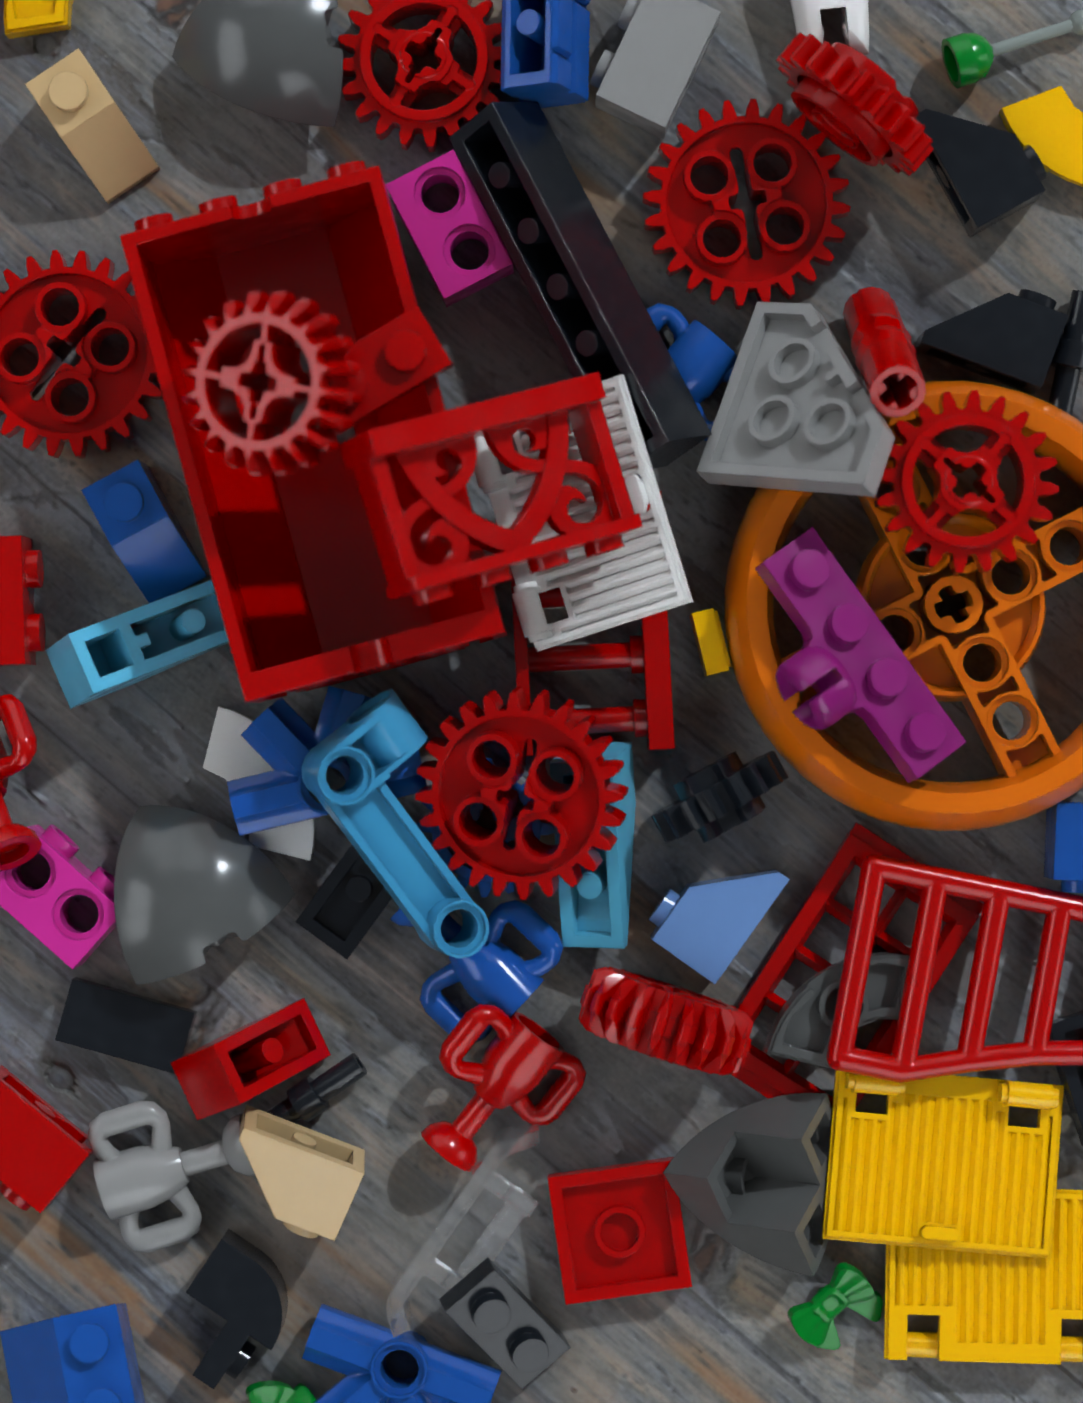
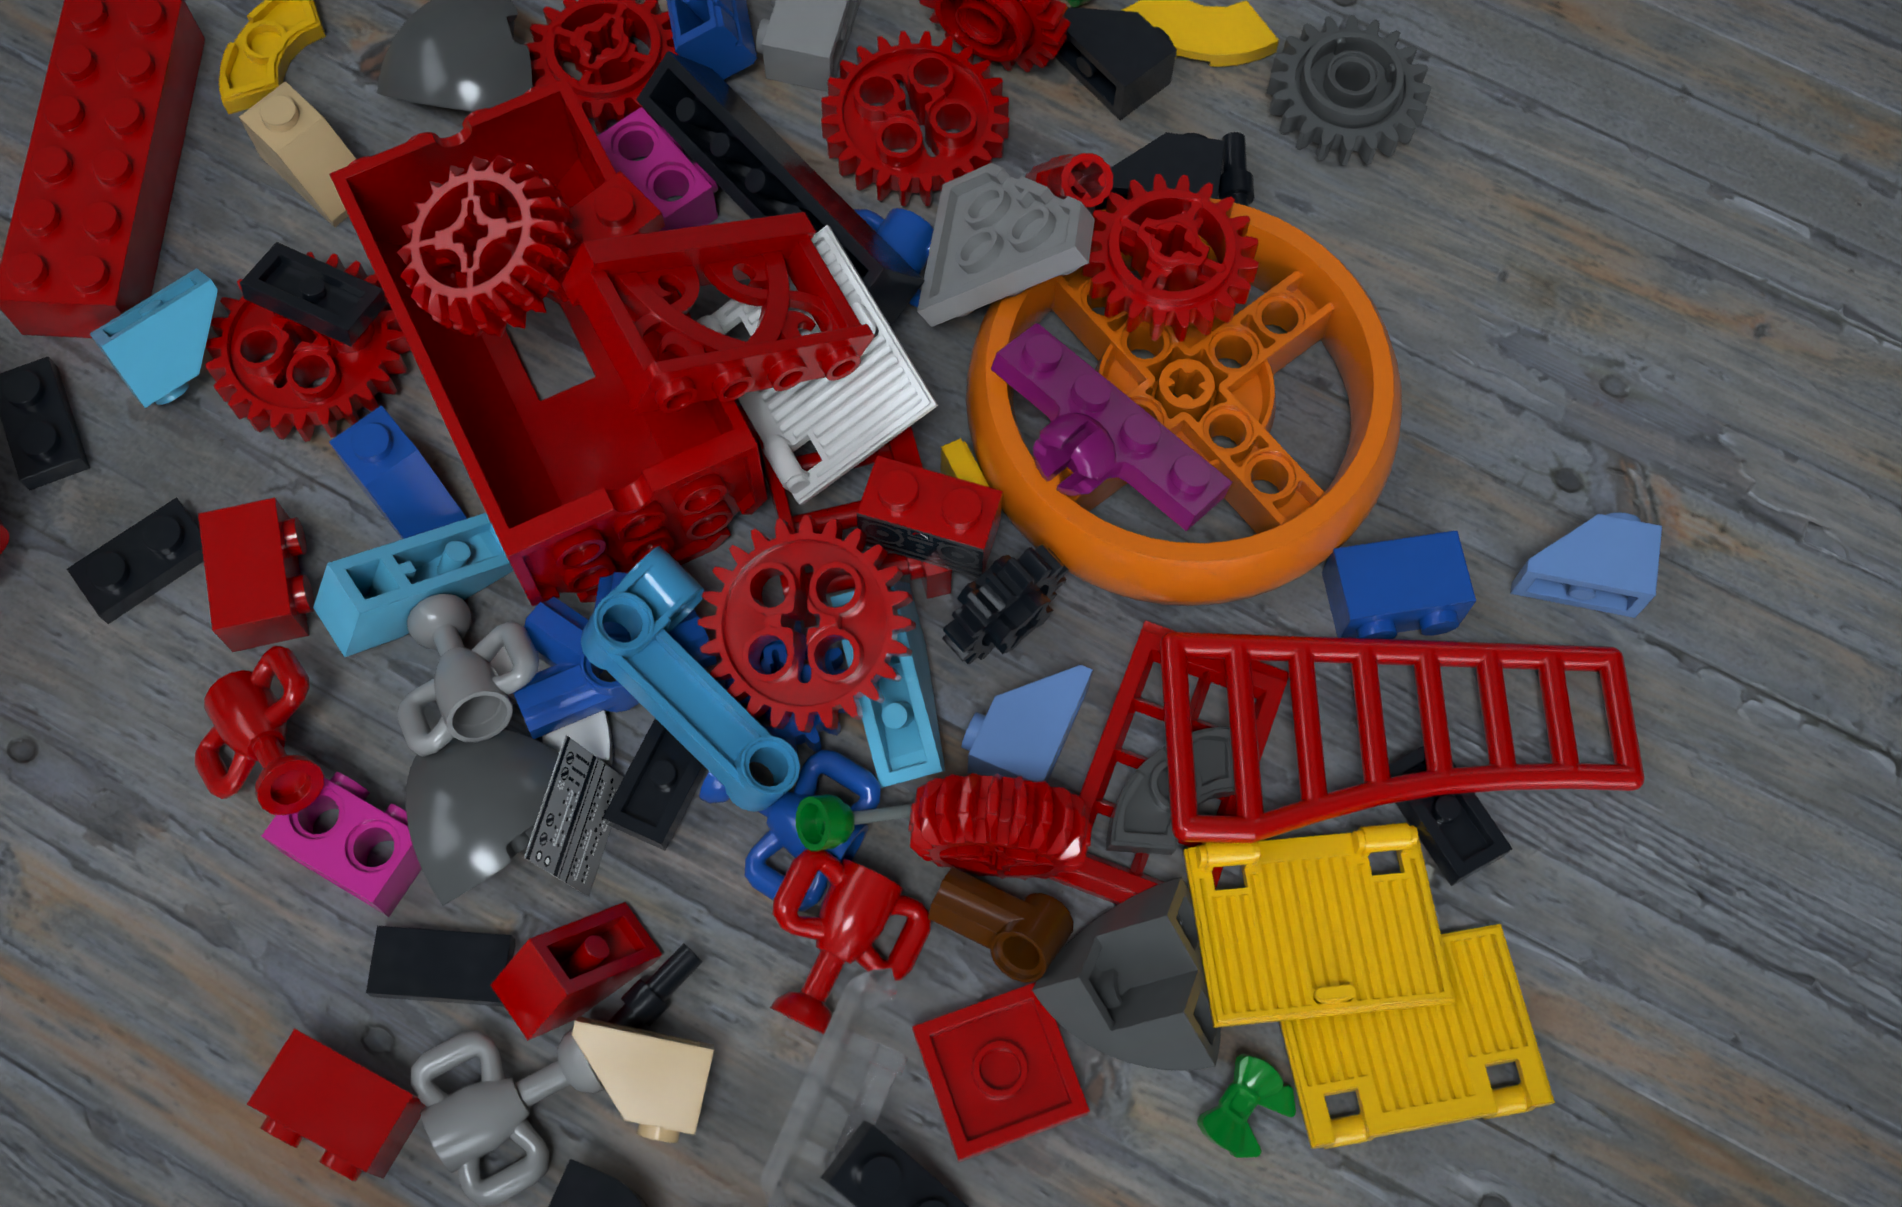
camera: 10 degrees left, 20 degrees down
(82, 320) = (313, 294): none -> black plate
(183, 772) = (465, 684): none -> light grey piece
(271, 923) = (571, 823): none -> light grey sticker
(505, 986) = (827, 822): none -> green hinge
(663, 704) = (930, 516): none -> red brick
(664, 1110) = (1019, 932): none -> reddish brown piece

